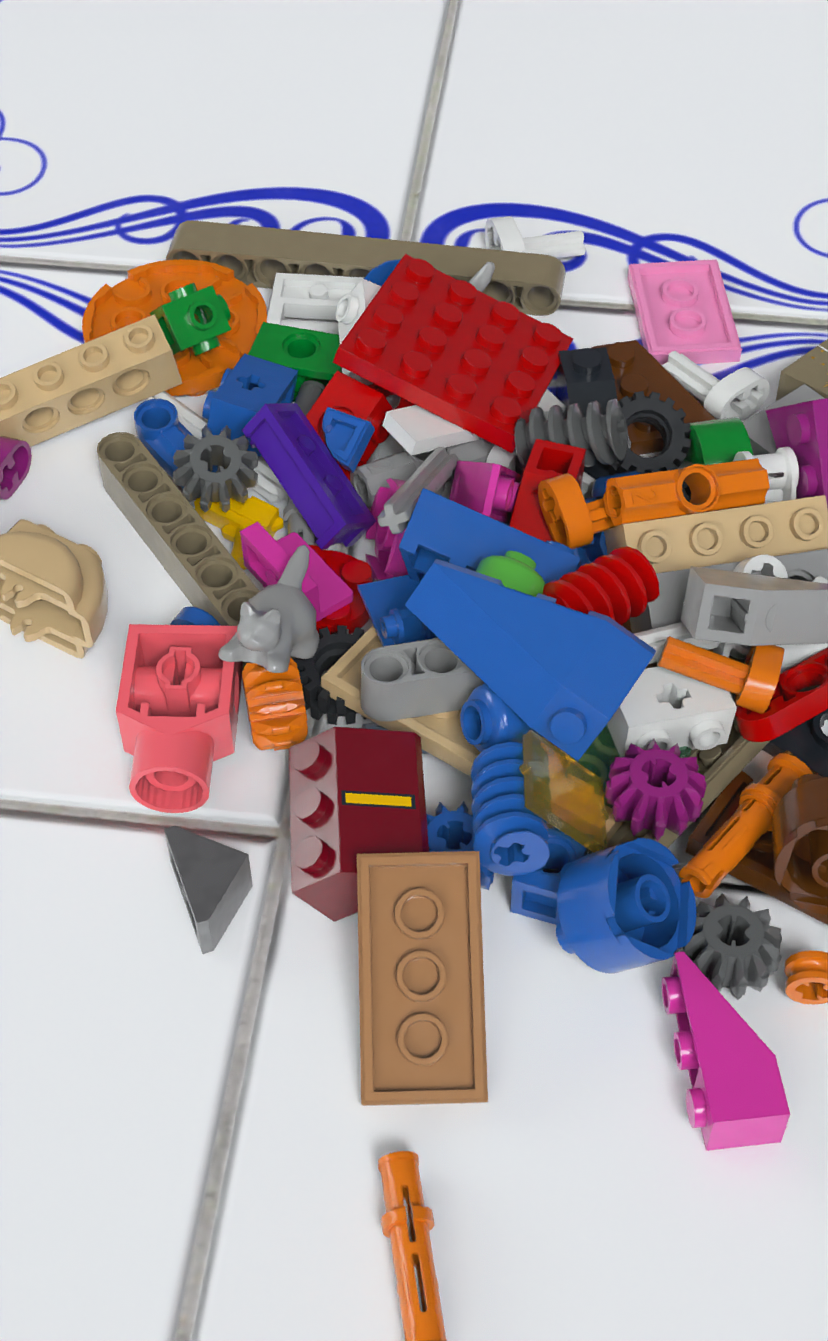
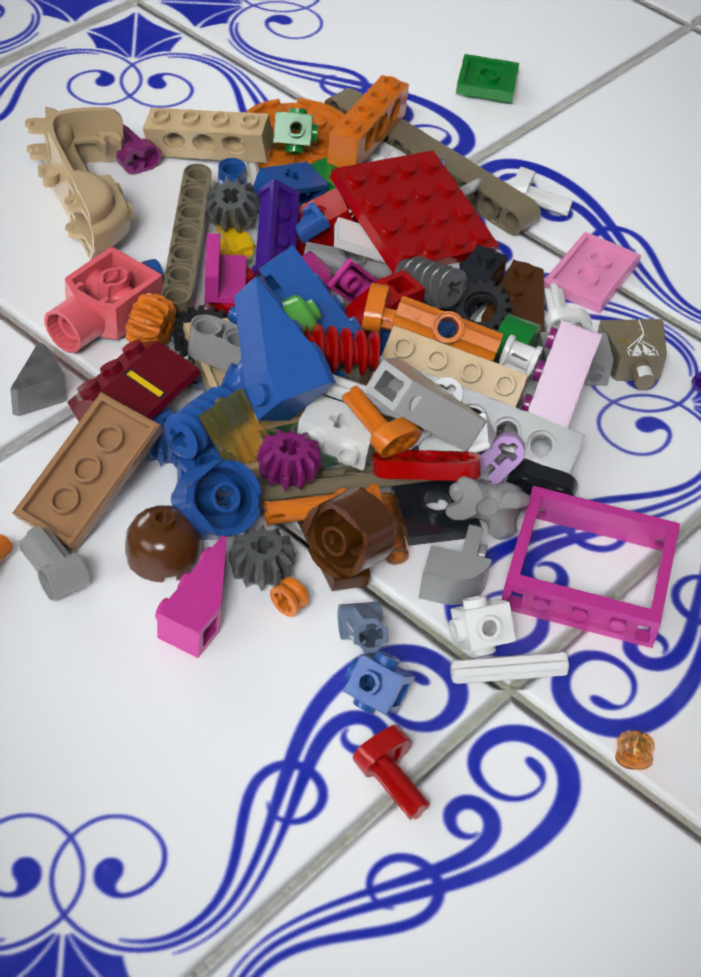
camera: 30 degrees right, 5 degrees down
(276, 622) = (178, 279): light grey animal -> none
(277, 260) = (368, 122): none -> orange brick
(322, 121) = (487, 78): none -> green plate
(428, 475) = (314, 257): light grey axle -> none
(511, 1148) = (56, 568): none -> light grey piece
(593, 1014) = (162, 544): none -> reddish brown cylinder

